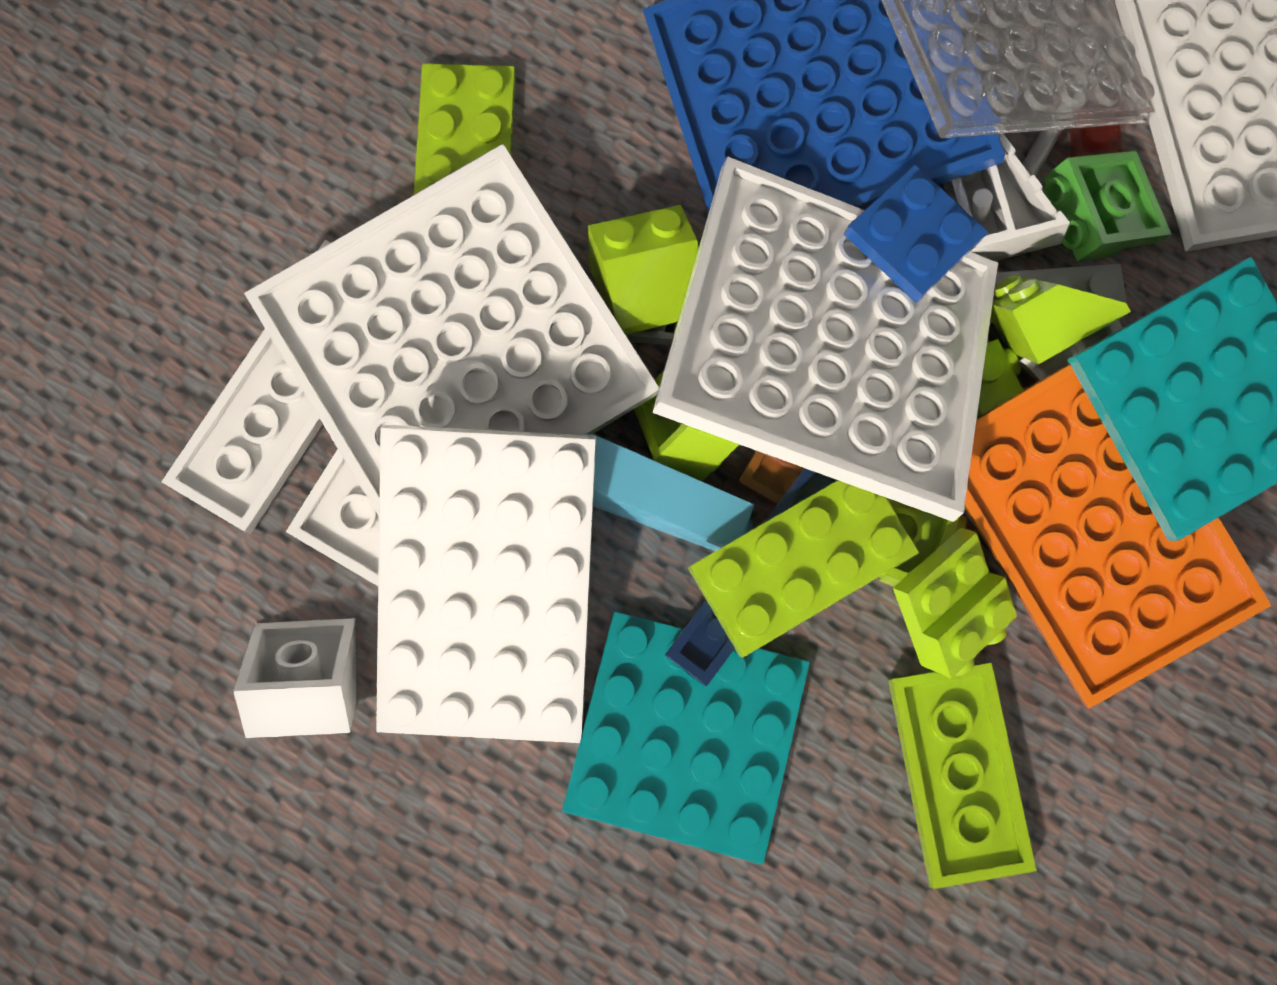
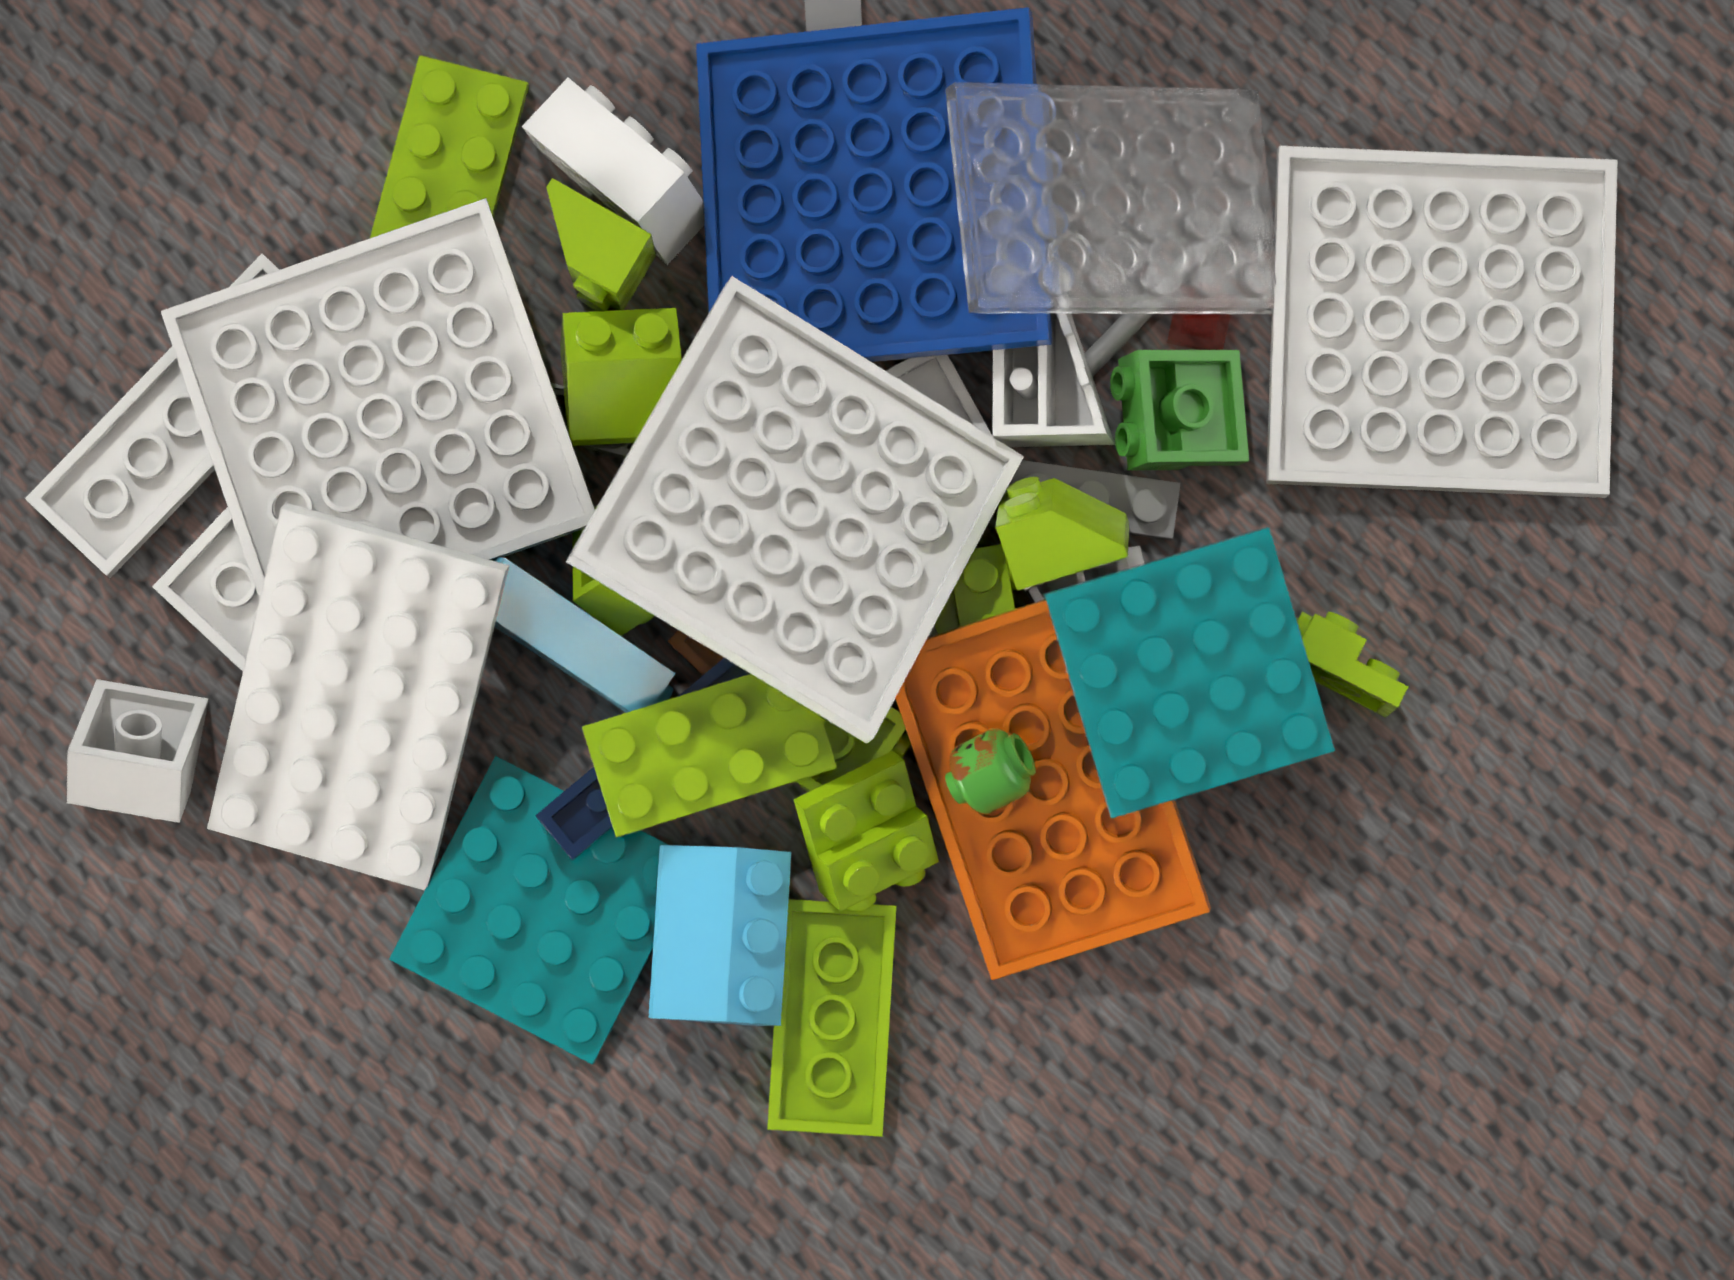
camera: 15 degrees right, 5 degrees up
(602, 166) = (600, 249): none -> lime slope
(605, 107) = (619, 165): none -> white wedge
(851, 724) = (720, 935): none -> medium azure slope
(915, 233) = (922, 410): blue plate -> none
(1059, 523) = (990, 770): none -> bright green head

